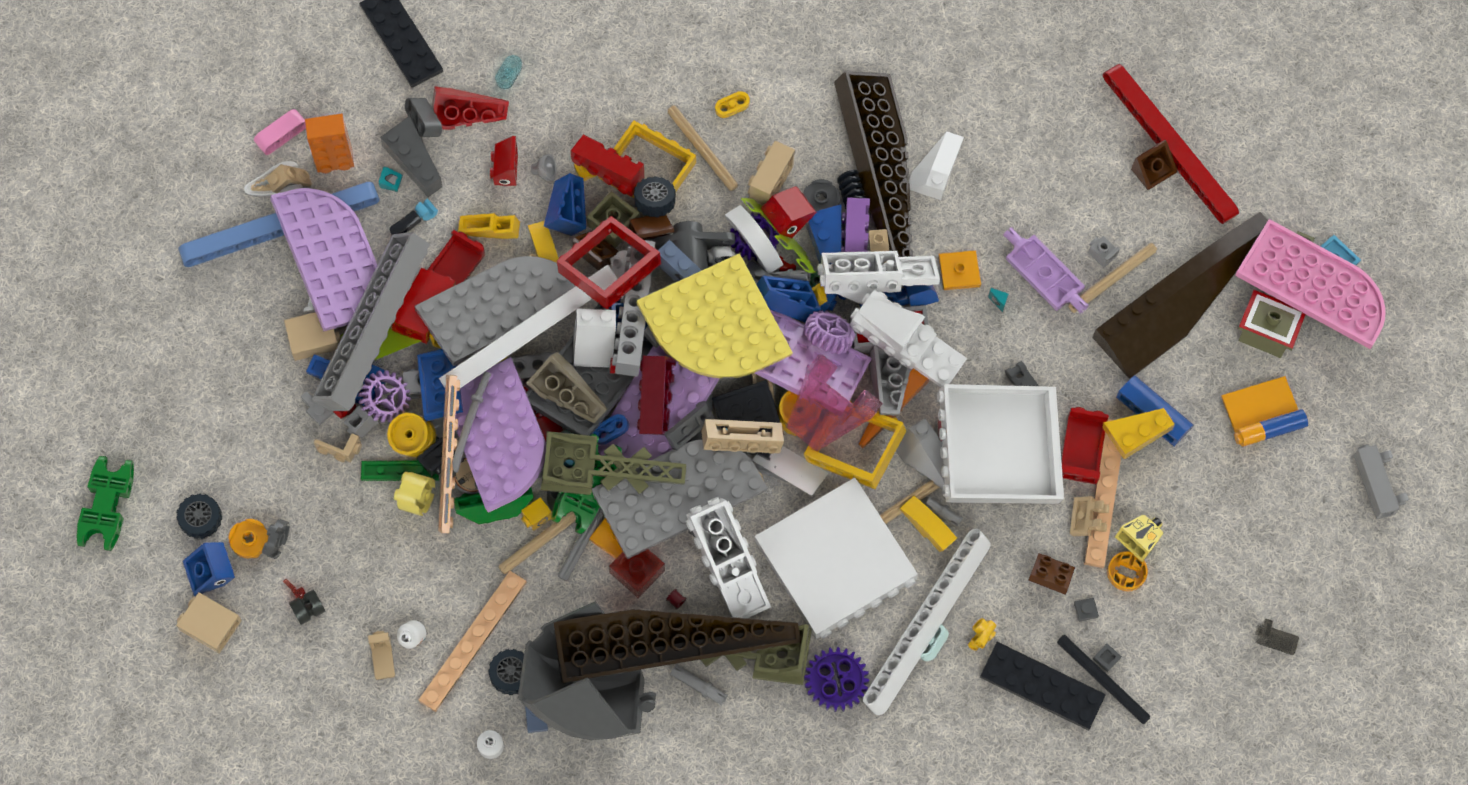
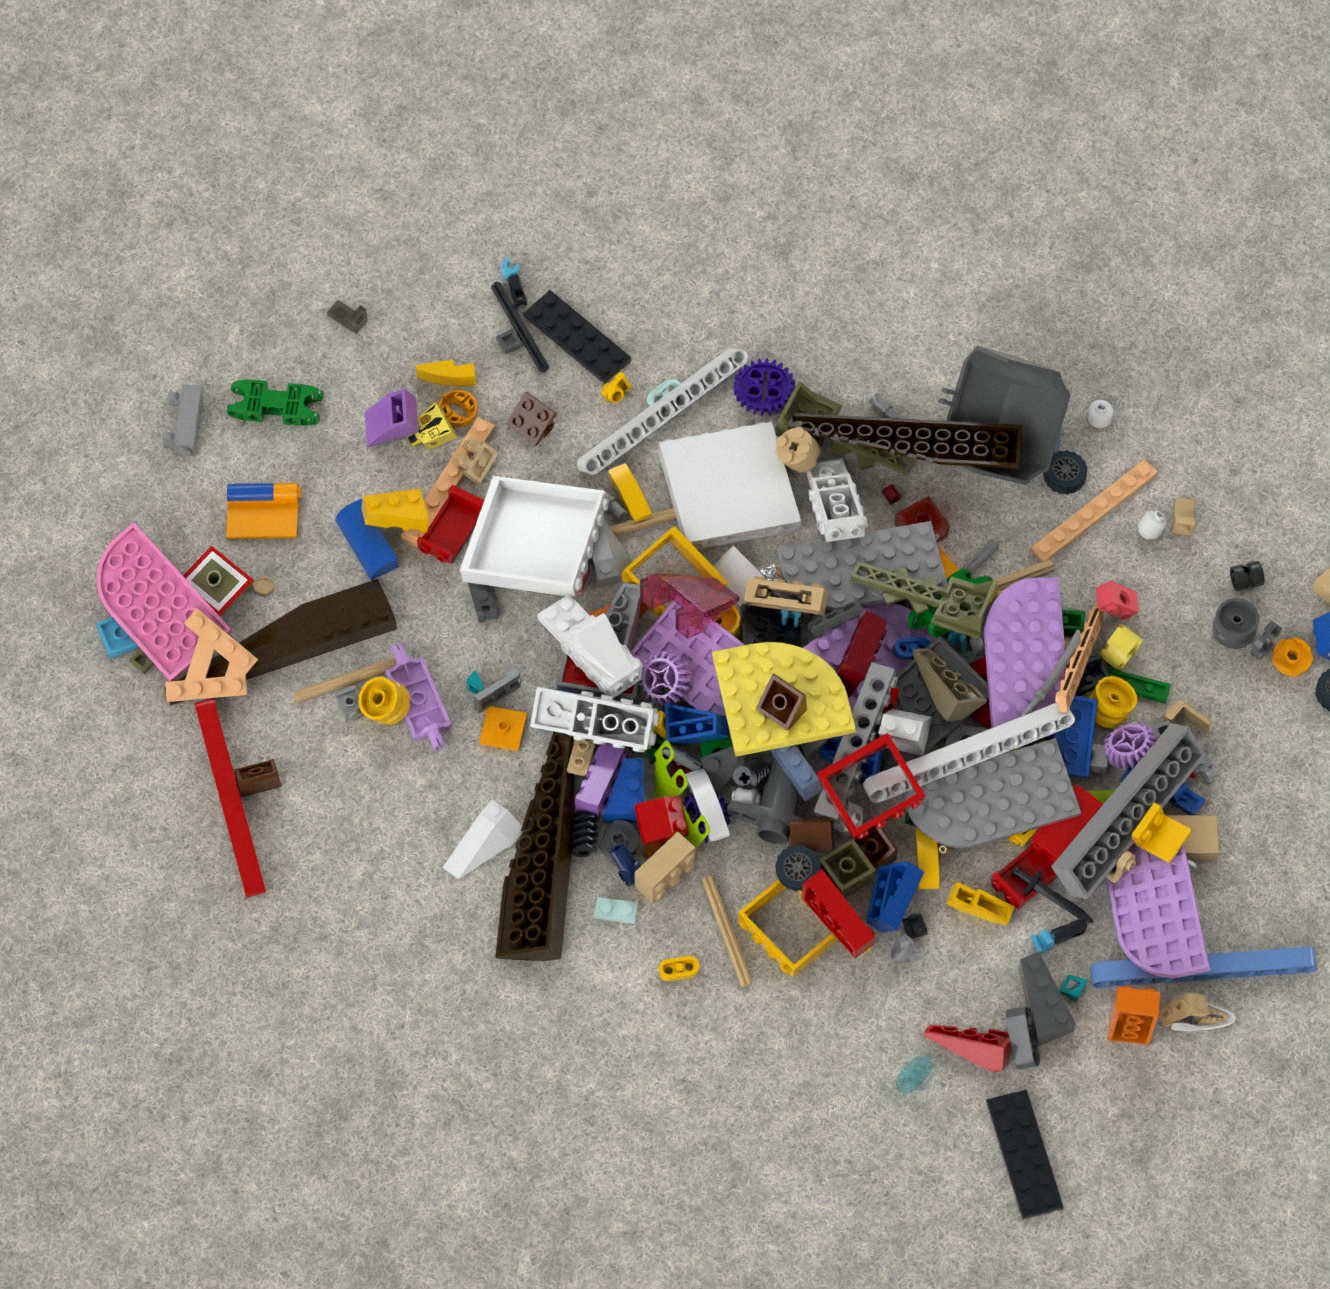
camera: 160 degrees left, 5 degrees down
(280, 131) = (1183, 1072): bright pink beam -> none
(297, 592) = (1252, 594): clear red hand -> none
(319, 549) = (1235, 623): none -> dark grey wheel
(336, 306) = (1160, 834): none -> yellow bracket
(364, 279) = (1125, 863): none -> tan plate
(428, 538) = (1117, 600): none -> coral brick
(444, 255) = (1034, 883): none -> black sword
(505, 162) = (945, 963): red slope -> none
(540, 194) = (914, 926): none -> black tile
(709, 300) = (782, 702): none -> reddish brown slope
(780, 603) = (798, 449): none -> tan brick
(803, 139) = (616, 910): none -> light aqua plate
(804, 171) = (625, 863): none -> dark blue piece
(977, 297) = (497, 691): none -> dark grey plate
(1073, 252) = (384, 700): none -> yellow wheel
(1086, 609) = (510, 387): dark grey plate -> none
(1128, 725) = (514, 282): none -> black piece
(1151, 602) = (447, 374): none -> yellow slope
(1182, 528) = (391, 418): none -> medium lavender slope
(1229, 343) = (263, 585): none -> tan piece
(1249, 252) = (210, 639): none -> light nougat plate
(1317, 520) = (288, 404): none -> green piece

